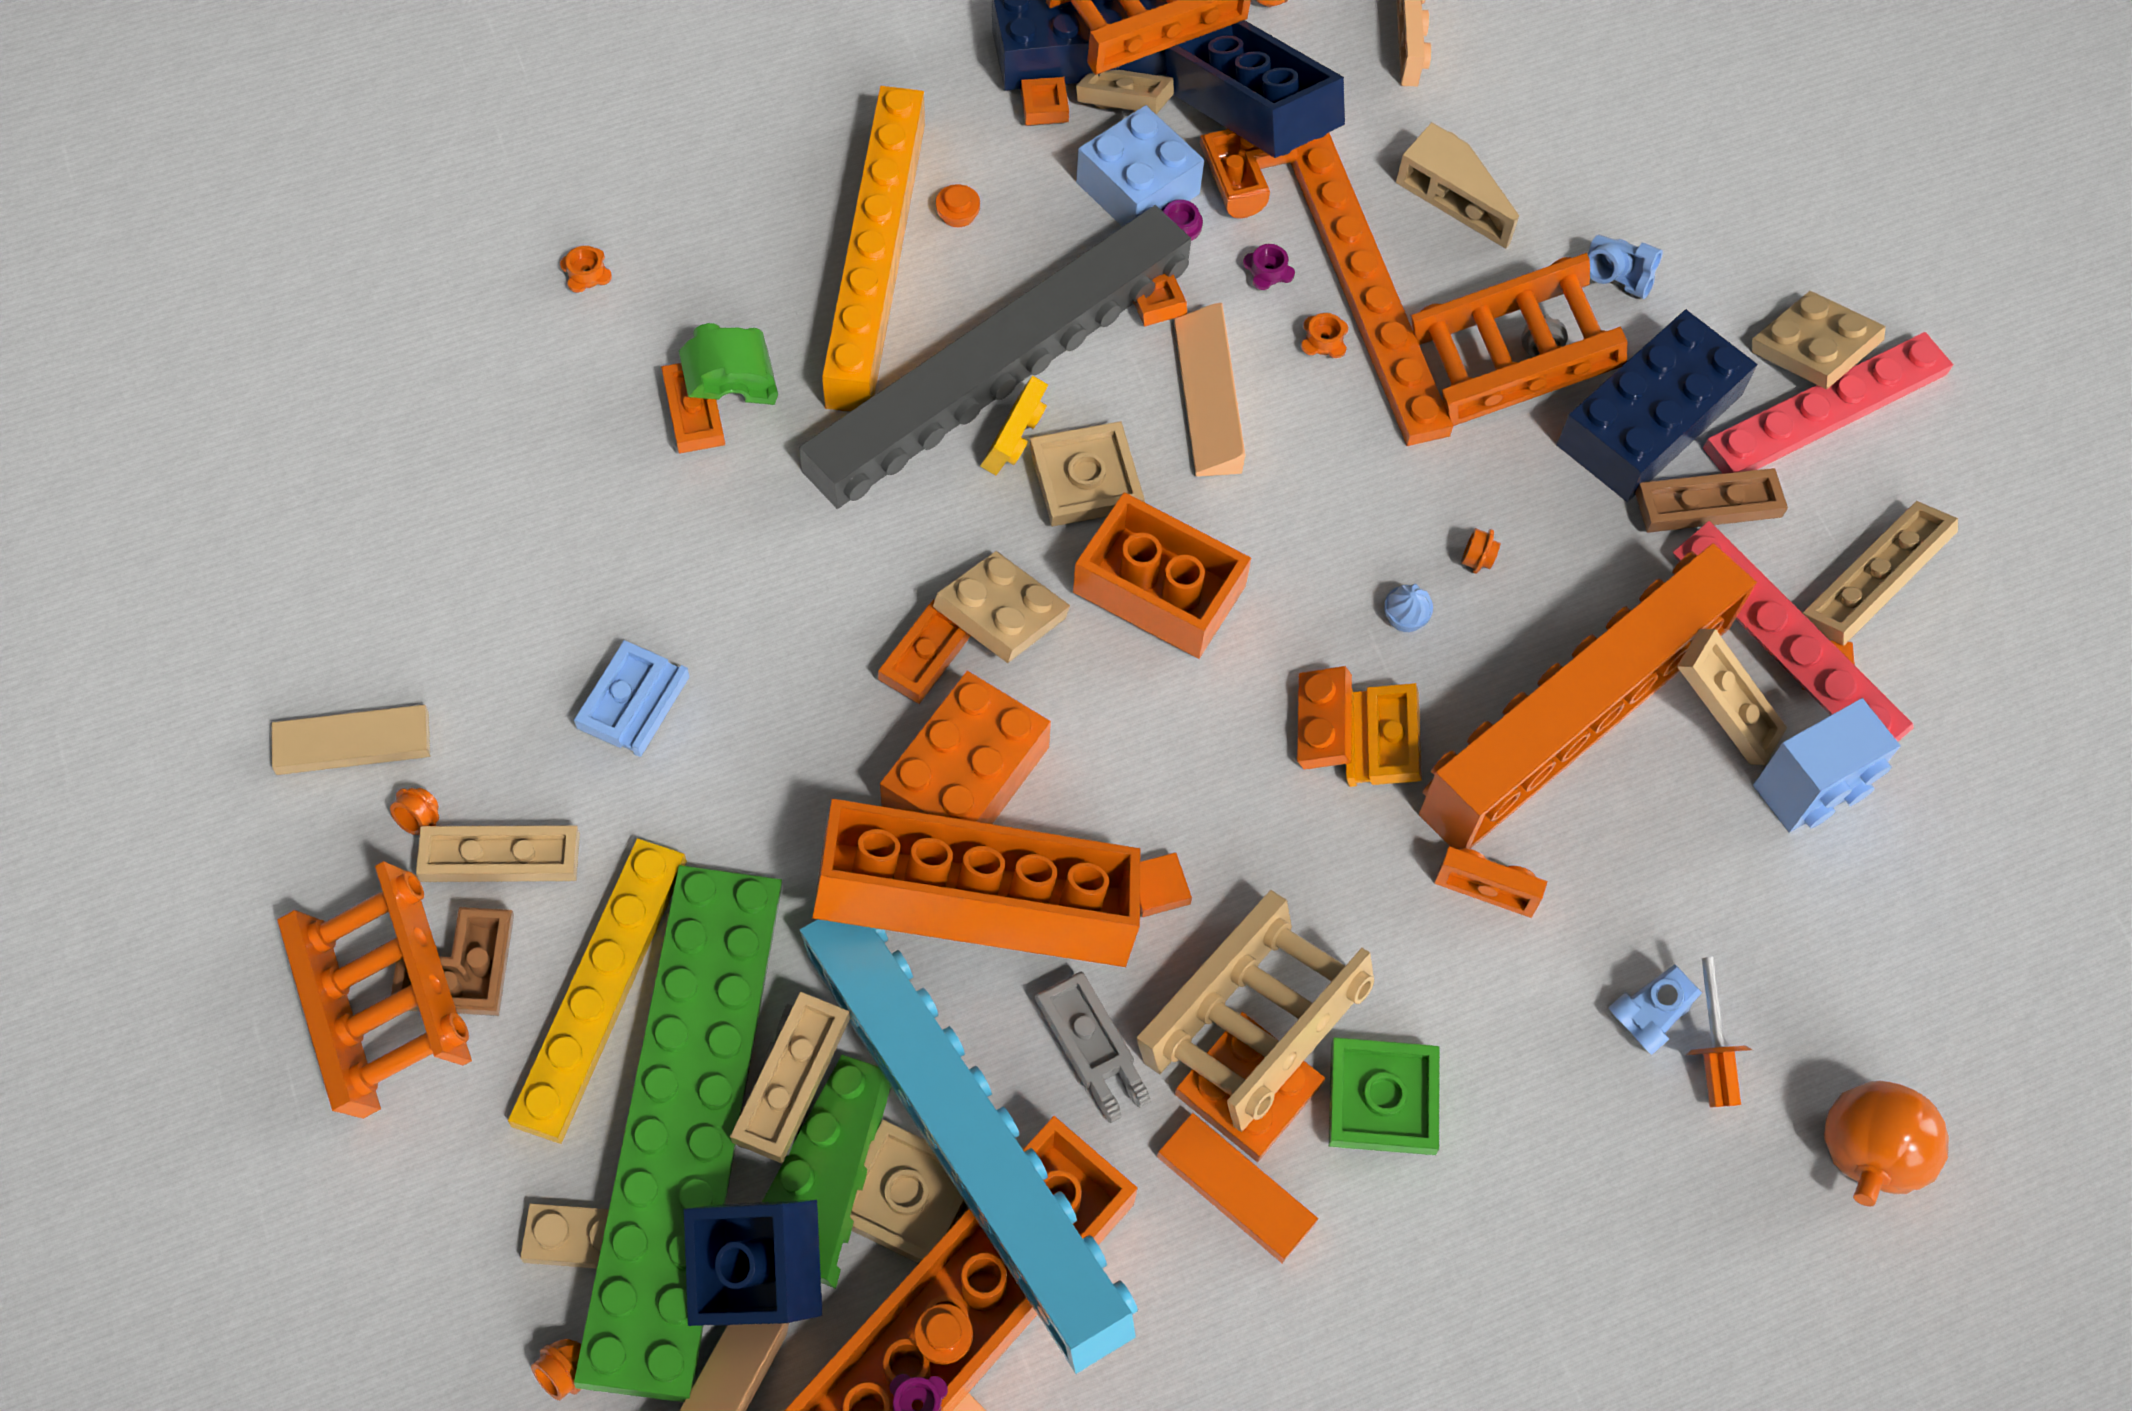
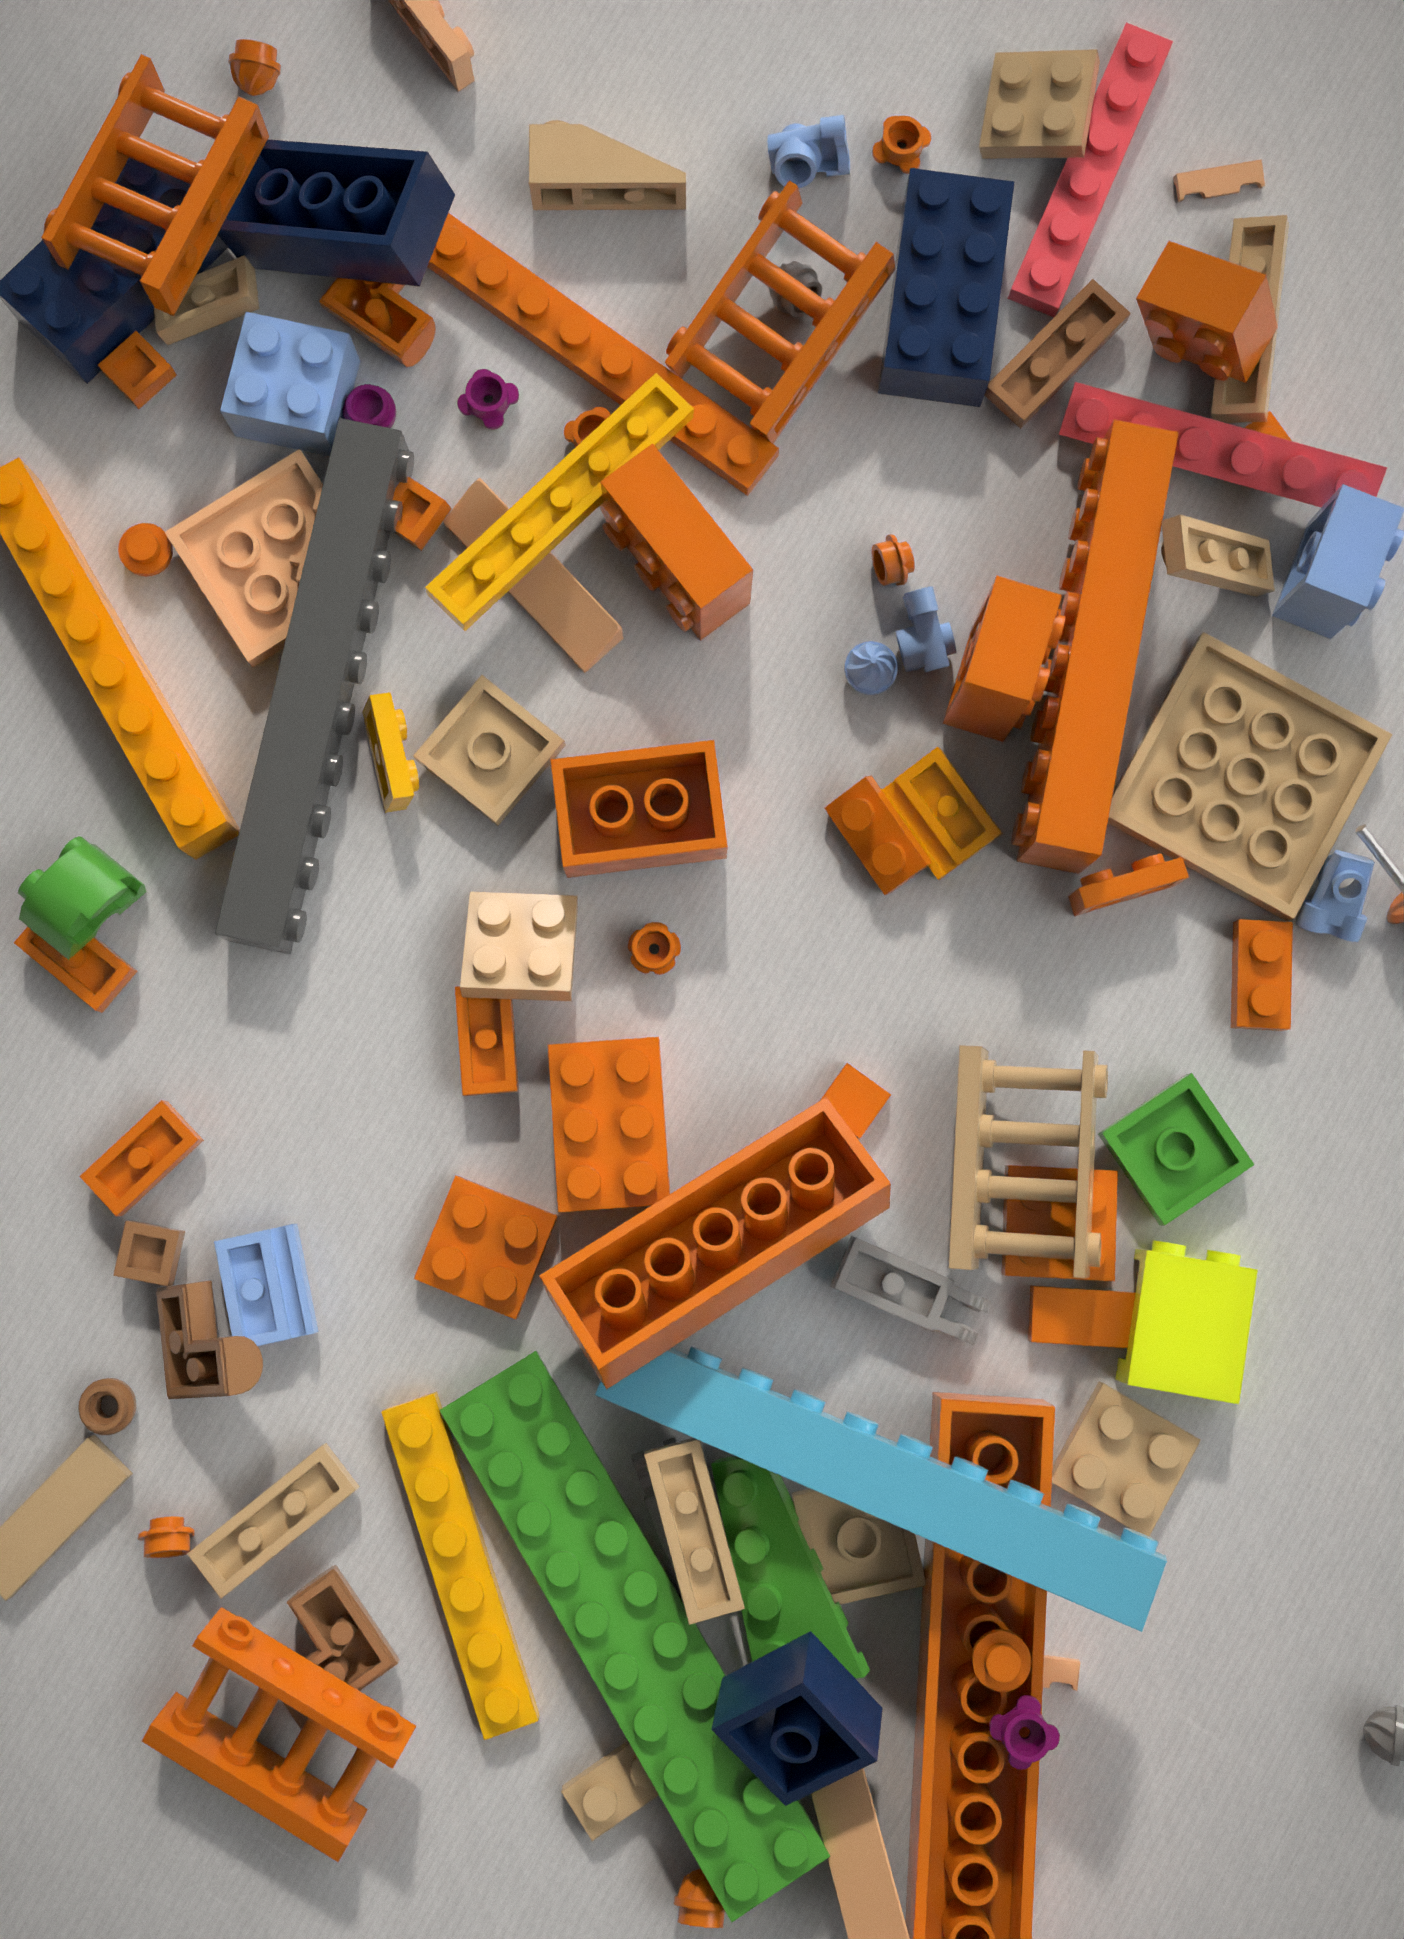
camera: 35 degrees left, 20 degrees up
(450, 685) = (91, 1411): none -> medium nougat plate
(555, 697) = (193, 1354): none -> medium nougat brick
(573, 619) = (149, 1253): none -> medium nougat plate
(623, 557) = (141, 1158): none -> orange plate
(797, 786) = (486, 1247): none -> orange plate
(1025, 245) = (252, 552): none -> light nougat plate
(1100, 667) = (656, 934): none -> orange plate
(1174, 1299) = (1123, 1459): none -> tan plate
(1265, 347) = (556, 503): none -> yellow plate
(1291, 1227) = (1189, 1323): none -> neon yellow panel
(1325, 427) = (675, 543): none -> orange brick
(1465, 615) = (927, 641): none -> light blue plate
(1506, 646) = (1004, 658): none -> orange brick
(1551, 1025) = (1261, 975): none -> orange plate
(1645, 874) = (1246, 776): none -> tan plate
(1698, 298) = (904, 130): none -> orange plate
(1843, 532) = (1207, 312): none -> orange brick
(1926, 475) = (1219, 180): none -> light nougat piece

